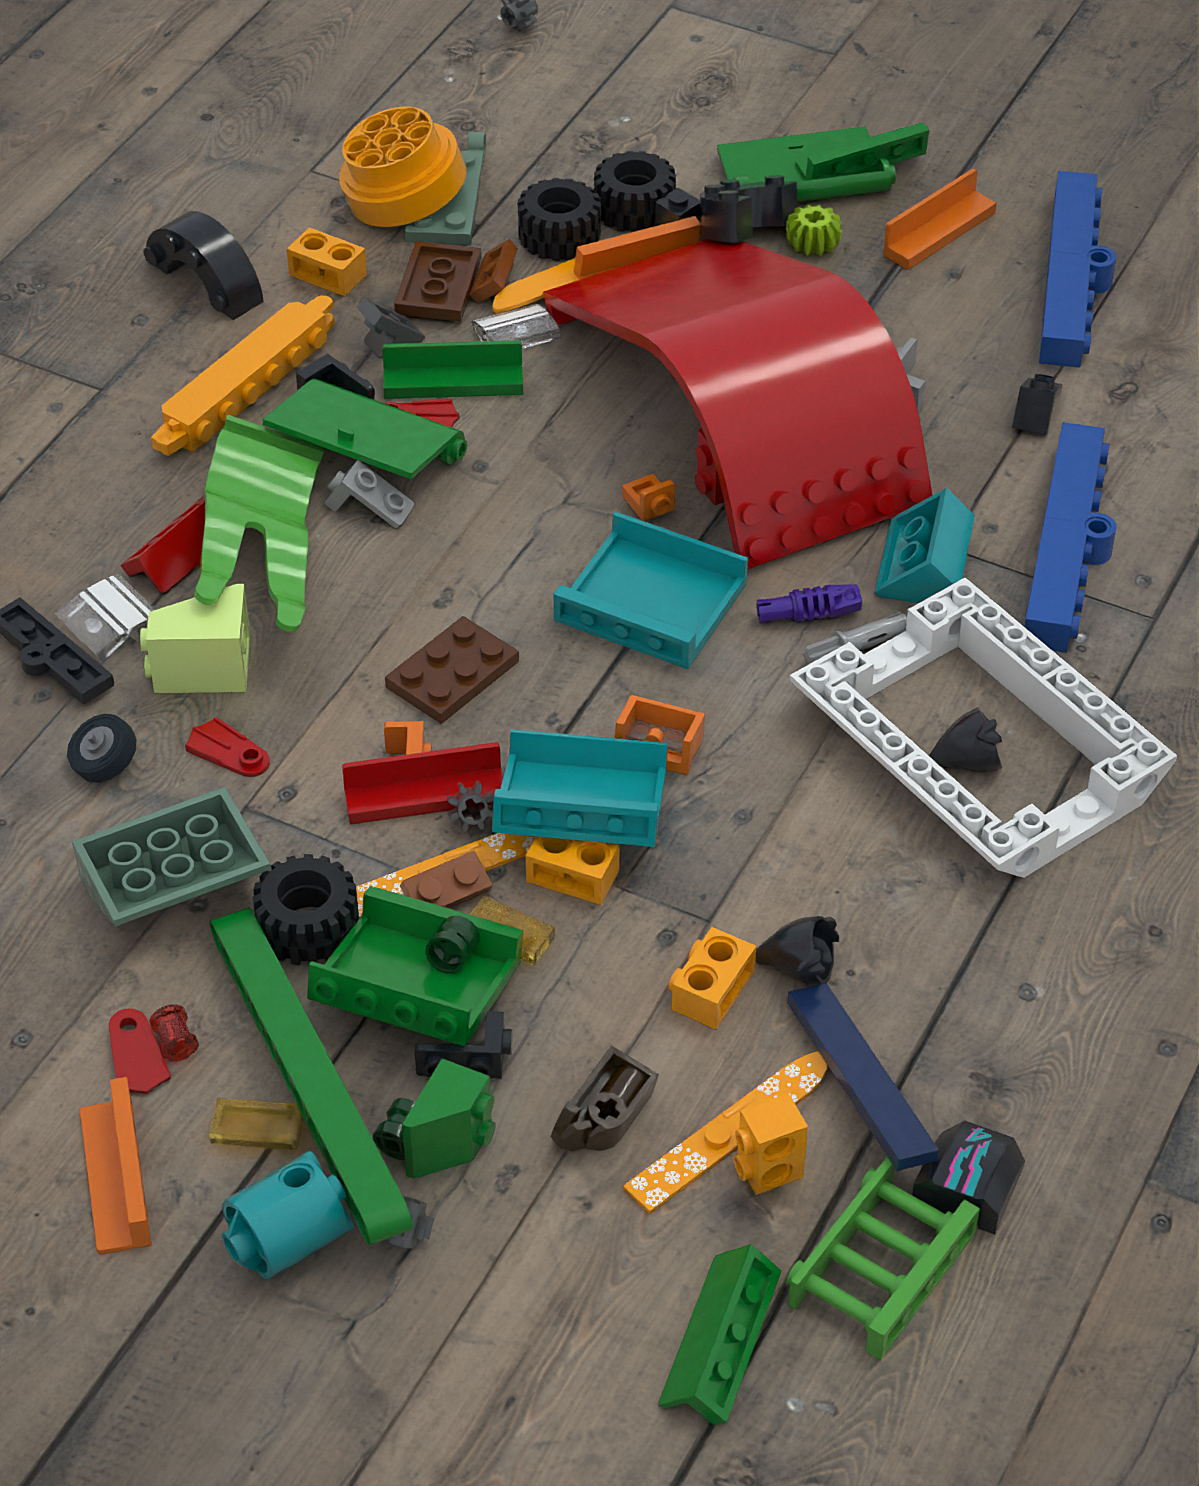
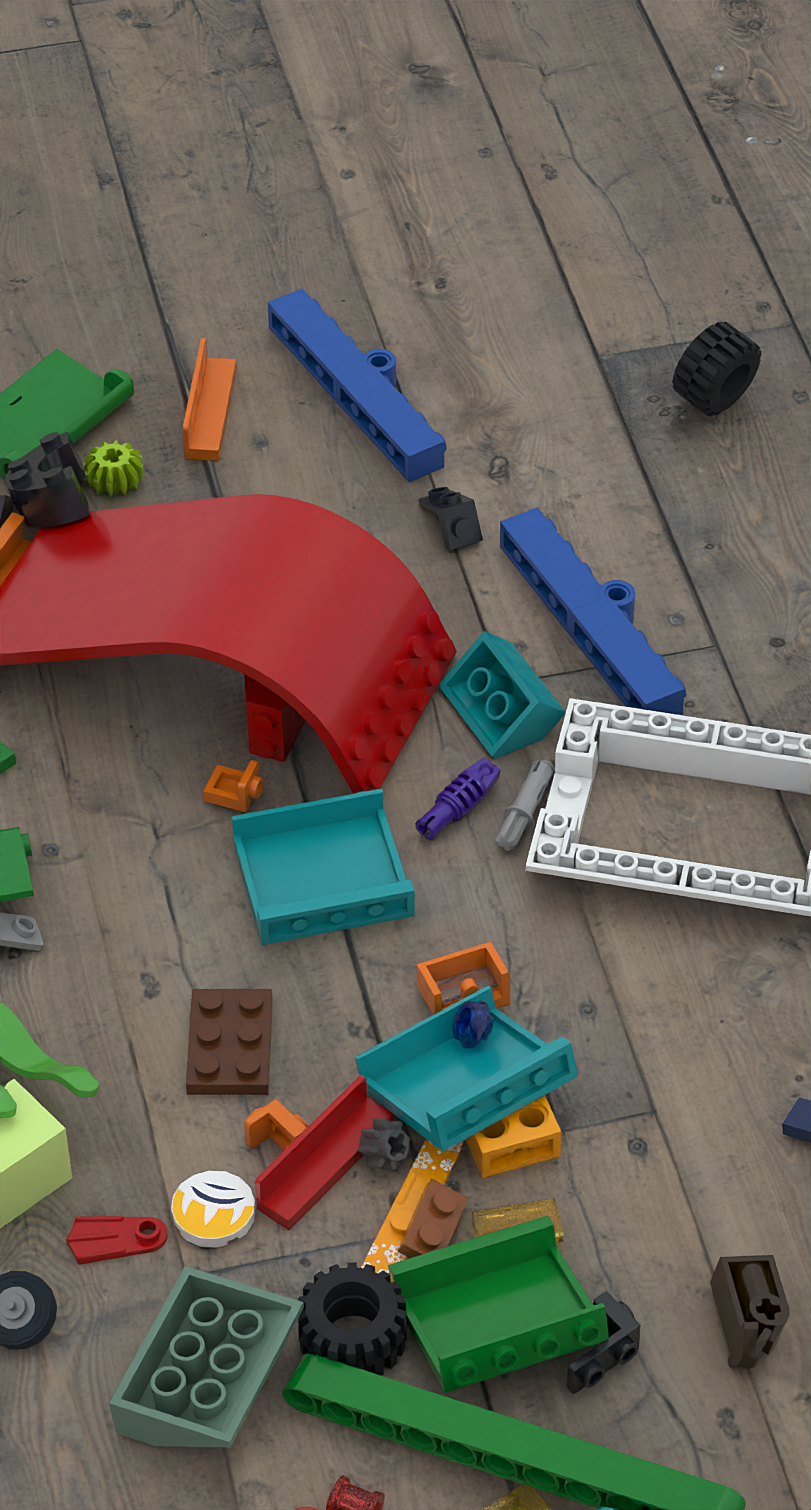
camera: 40 degrees left, 0 degrees up
(309, 772) = (213, 1208): none -> tile
(389, 1133) = (620, 1433): dark green wheel -> none
(448, 1120) = (660, 1401): green slope -> none
(452, 944) = (505, 1266): dark green wheel -> none
(624, 762) = (472, 1024): none -> clear blue hat
(712, 977) = (714, 1143): light orange brick -> none
(802, 949) = (758, 1084): black hat -> none
(863, 154) = (82, 376): green panel -> none
(969, 744) = (707, 831): black hat -> none

